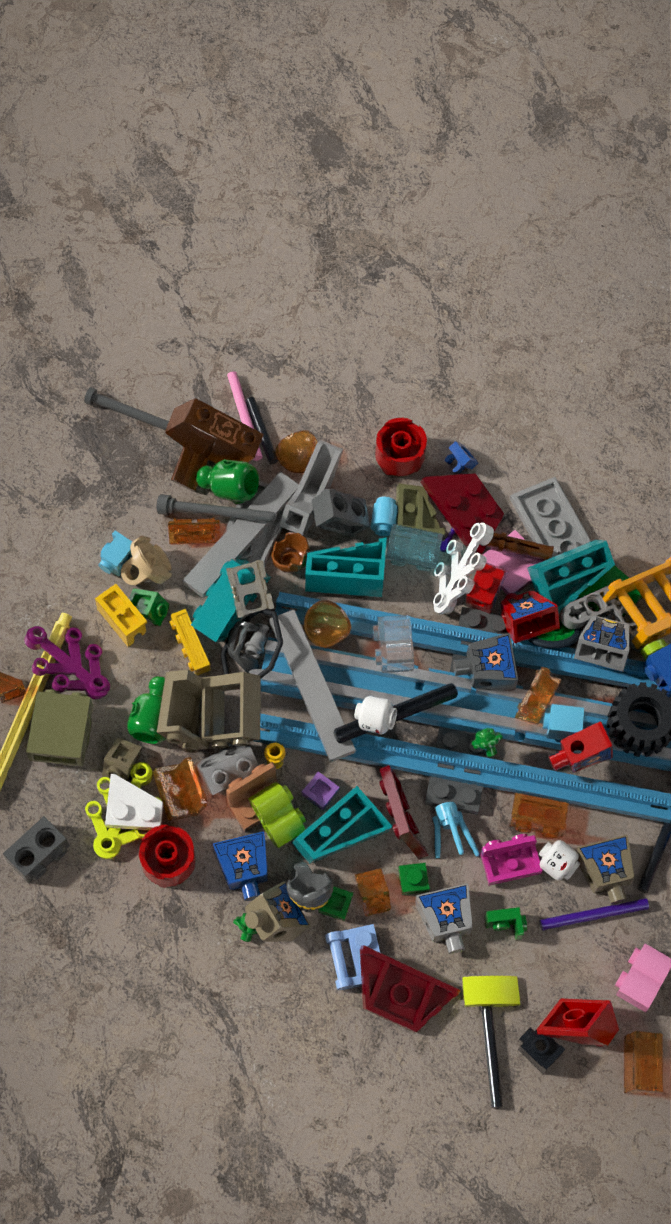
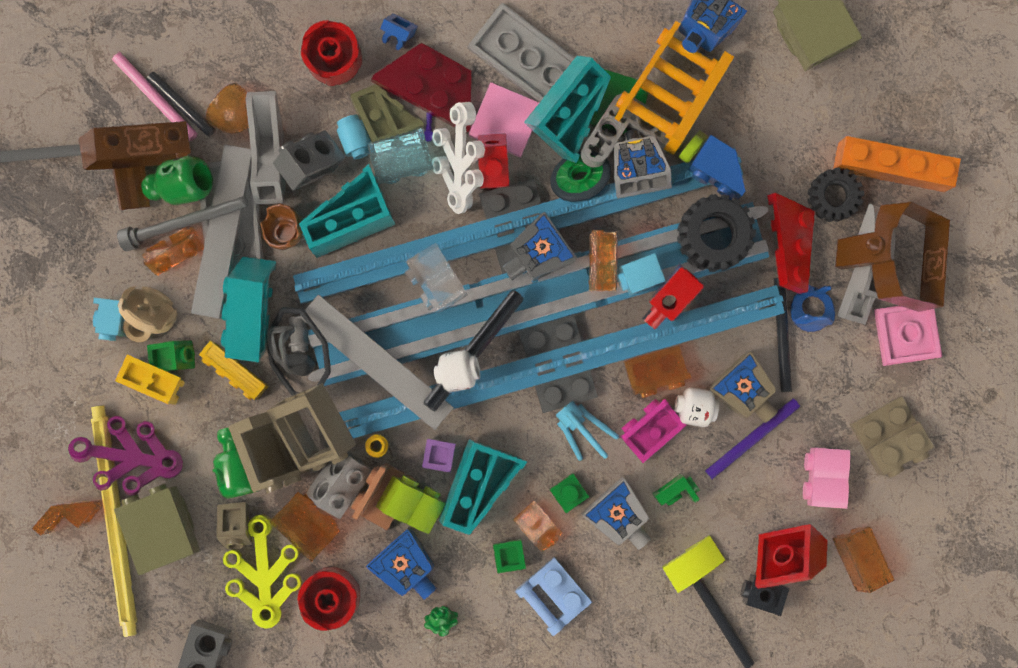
camera: 20 degrees left, 20 degrees up
(131, 806) = (269, 569): white wing -> none
(258, 585) = (255, 306): dark tan piece -> none
(276, 915) = (460, 602): dark tan torso -> none
(308, 889) = (479, 562): dark grey hair -> none
(326, 624) = (360, 294): clear orange helmet -> none
(398, 804) = (518, 429): dark red wing -> none
(400, 991) = (612, 610): dark red wing -> none
(487, 740) = (575, 332): green plant -> none
(519, 546) = (529, 96): reddish brown pin -> none
(528, 615) = (549, 174): red torso -> none

